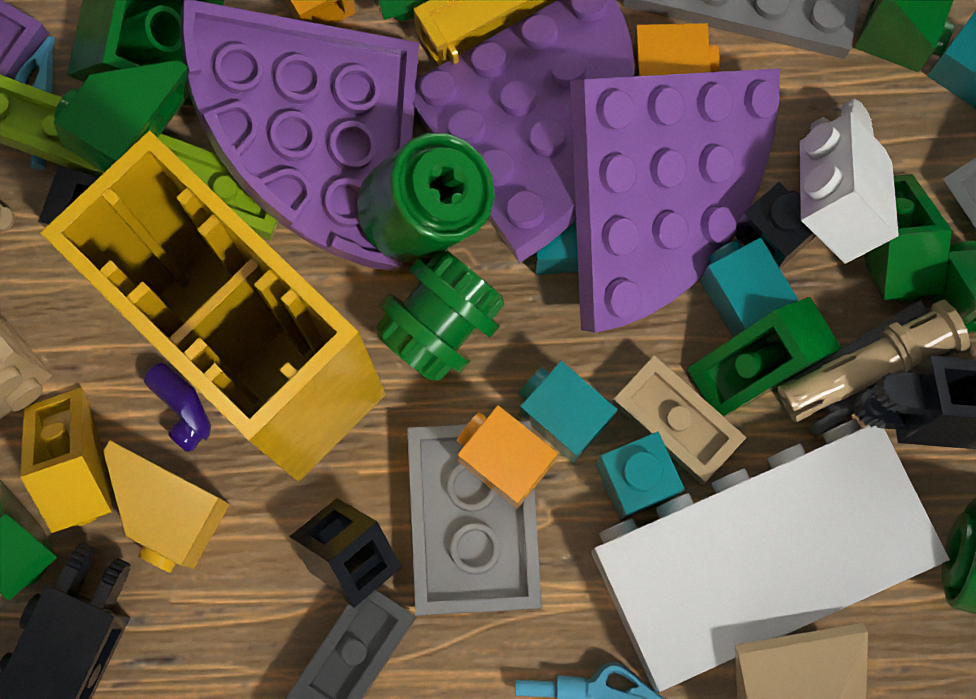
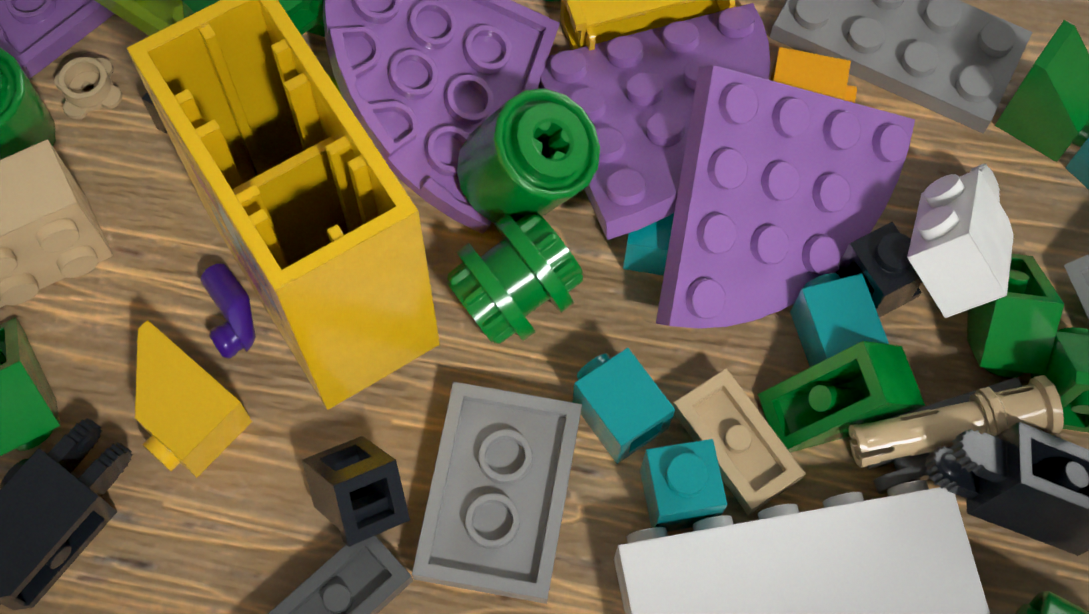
camera: 10 degrees right, 10 degrees down
(64, 461) = (96, 337): yellow slope -> none
(504, 455) = (546, 427): light orange brick -> none

